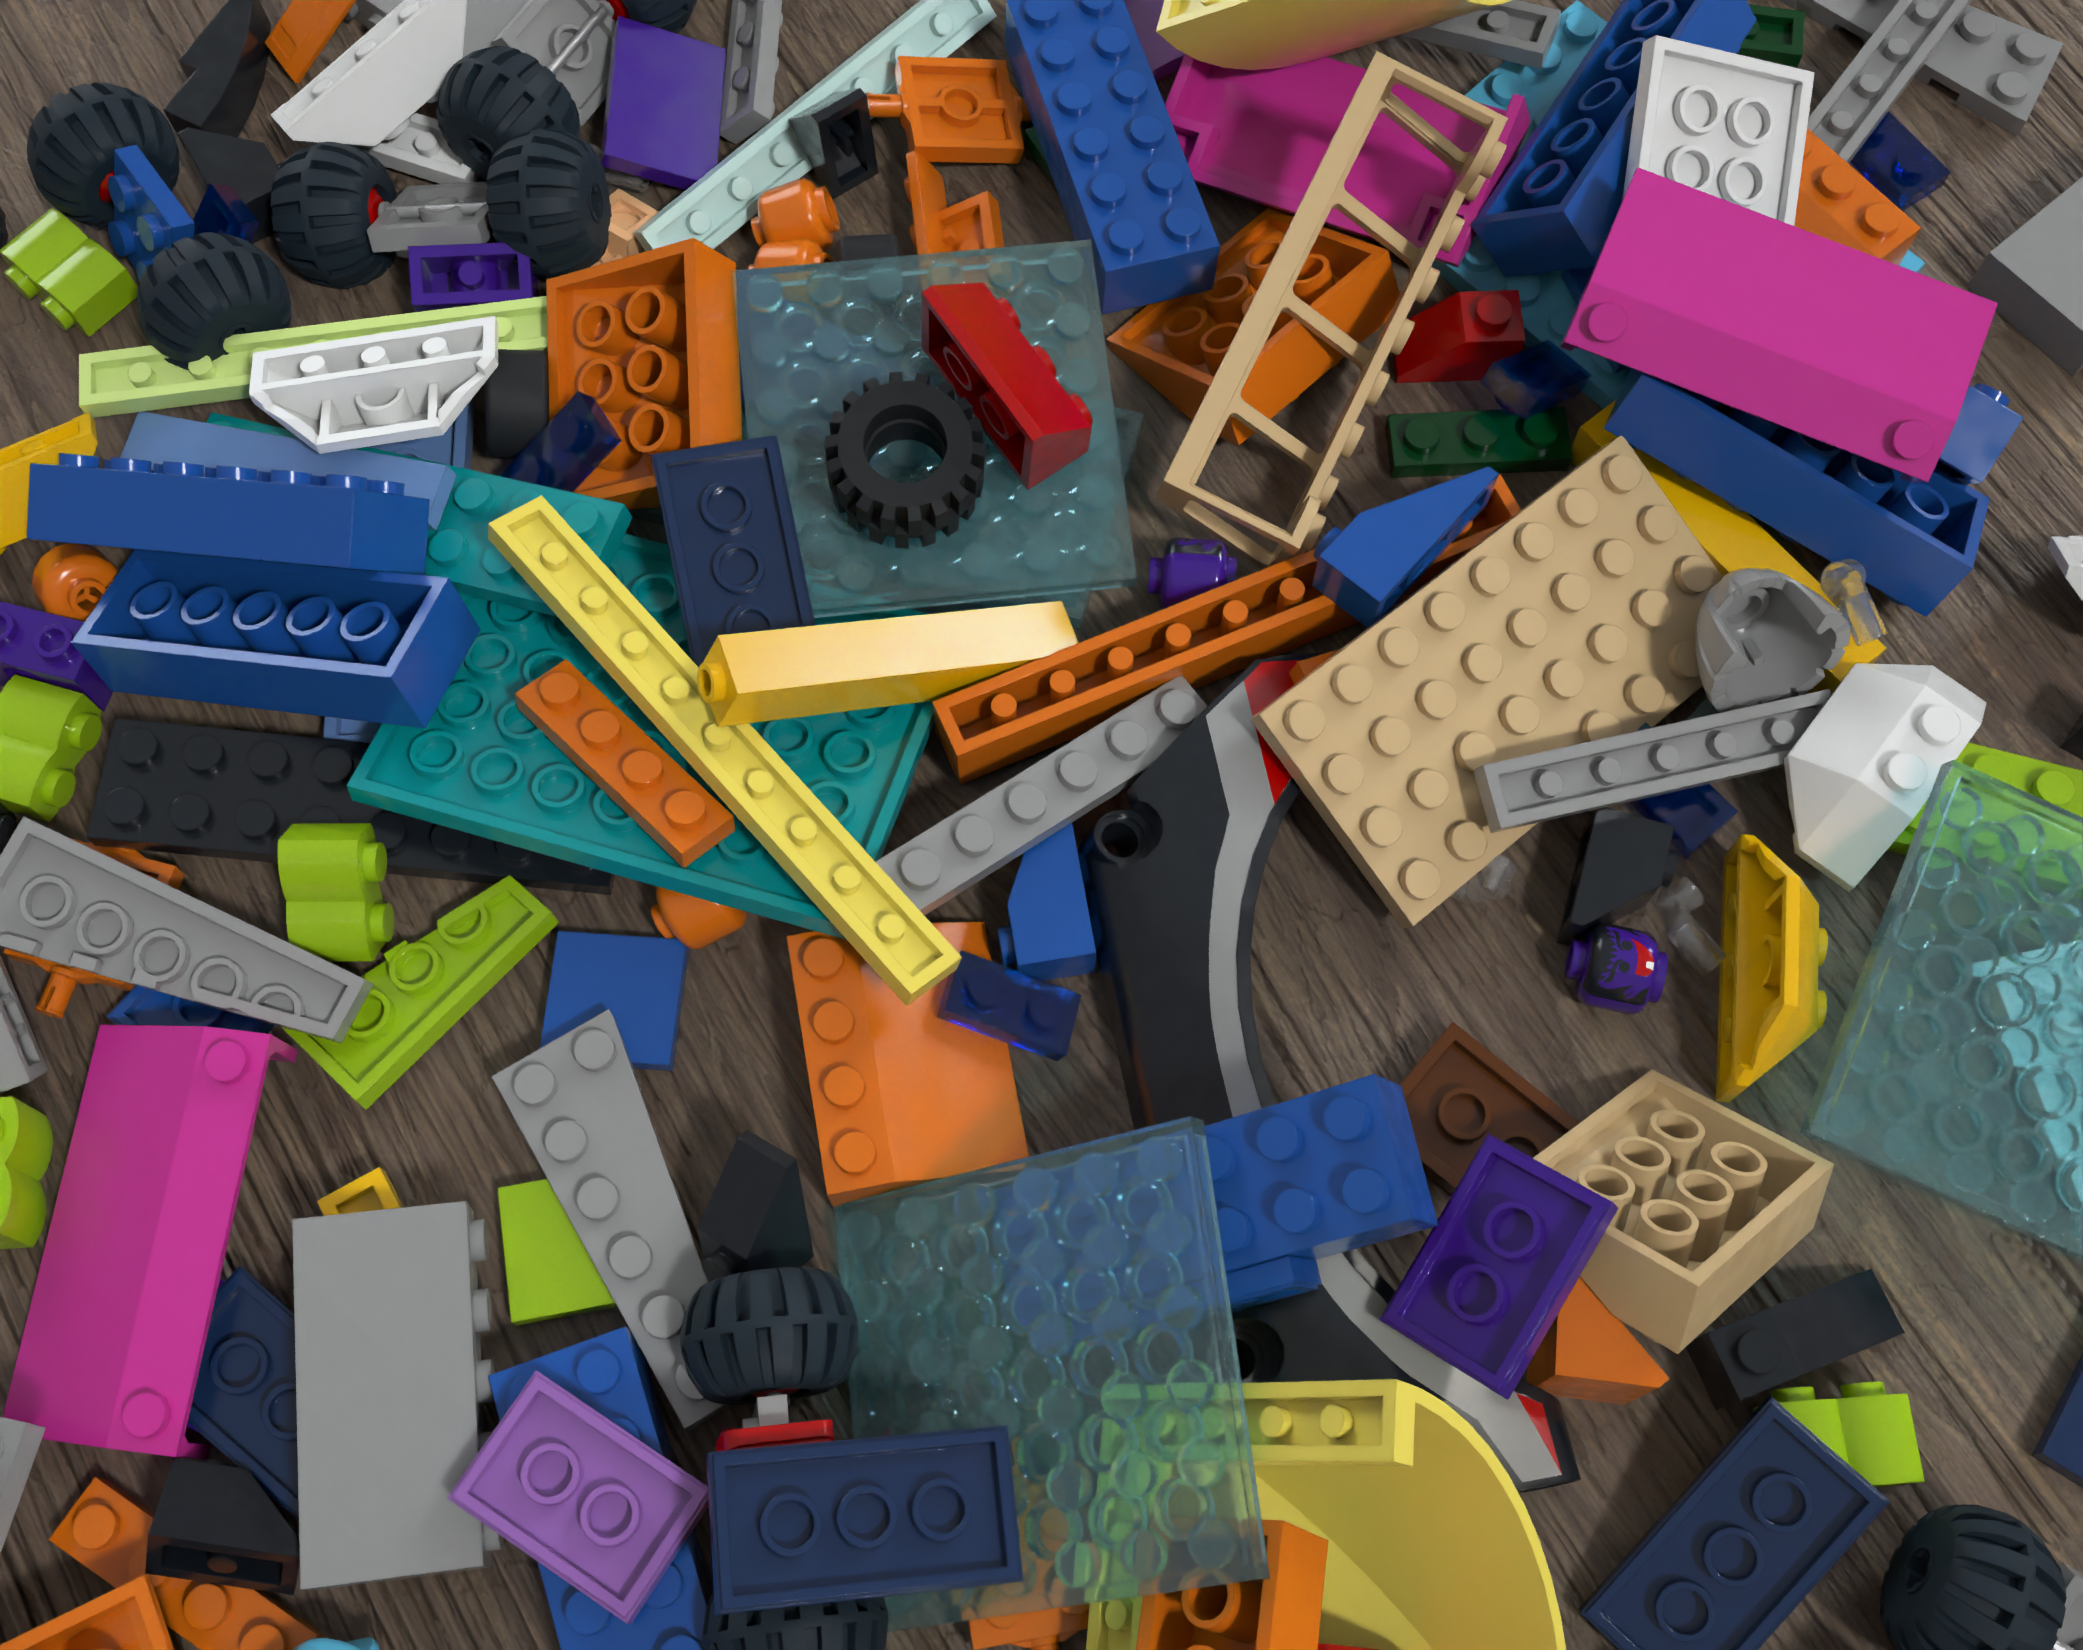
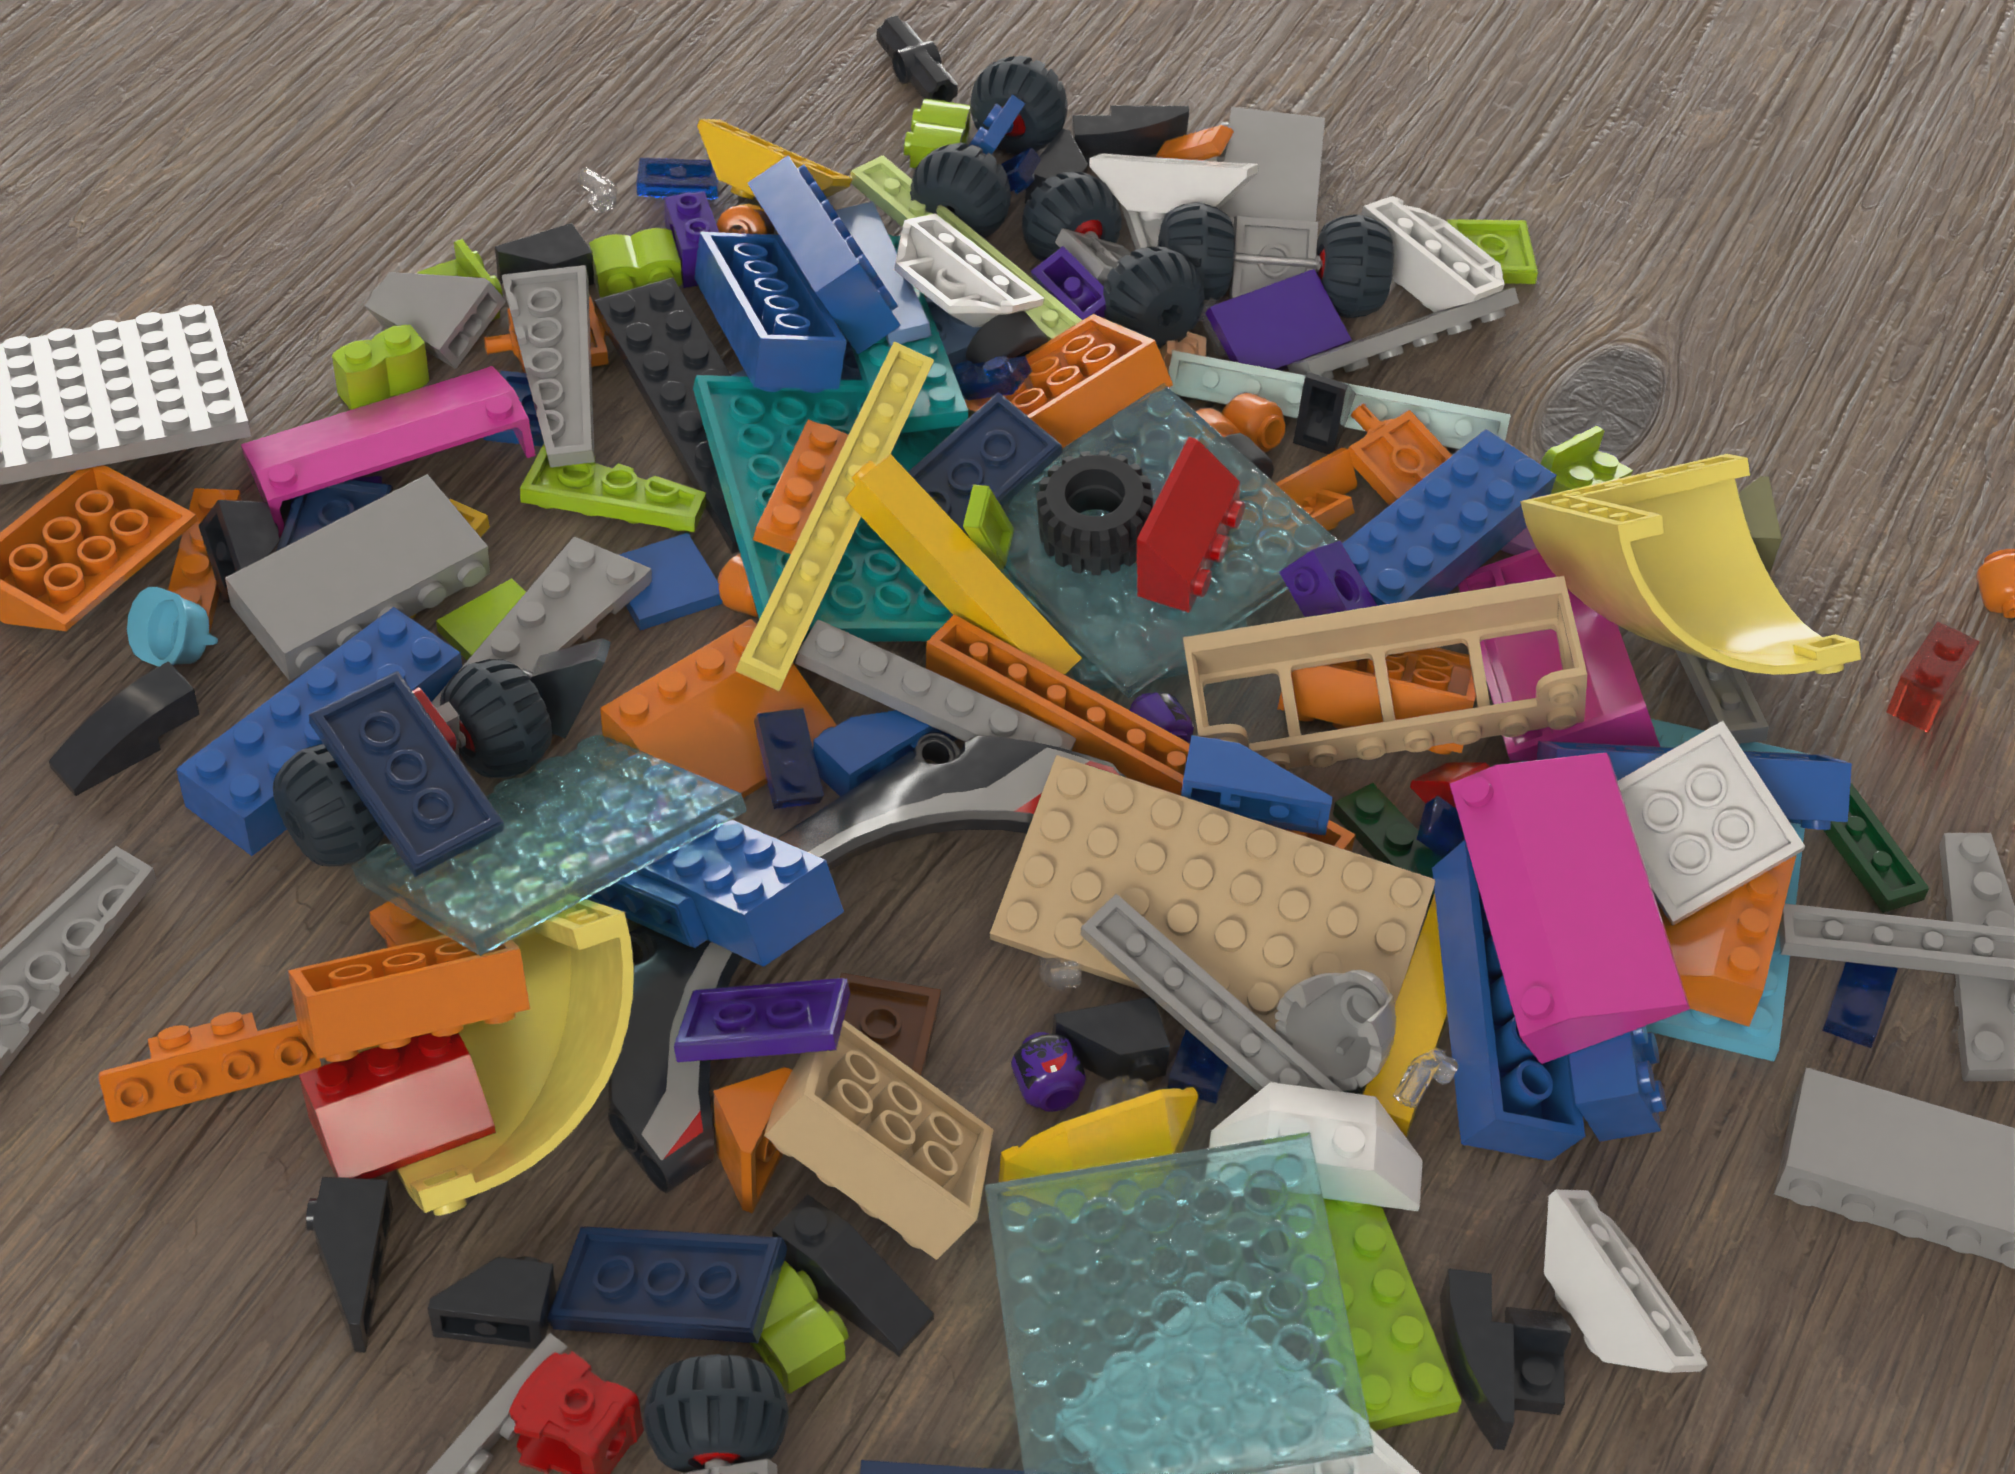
camera: 55 degrees right, 20 degrees down
(334, 890) = (636, 416): lime brick -> none
(582, 1497) = (344, 655): medium lavender tile -> none
(854, 586) = (988, 525): none -> lime tile
(1165, 294) = (1326, 582): none -> dark purple brick

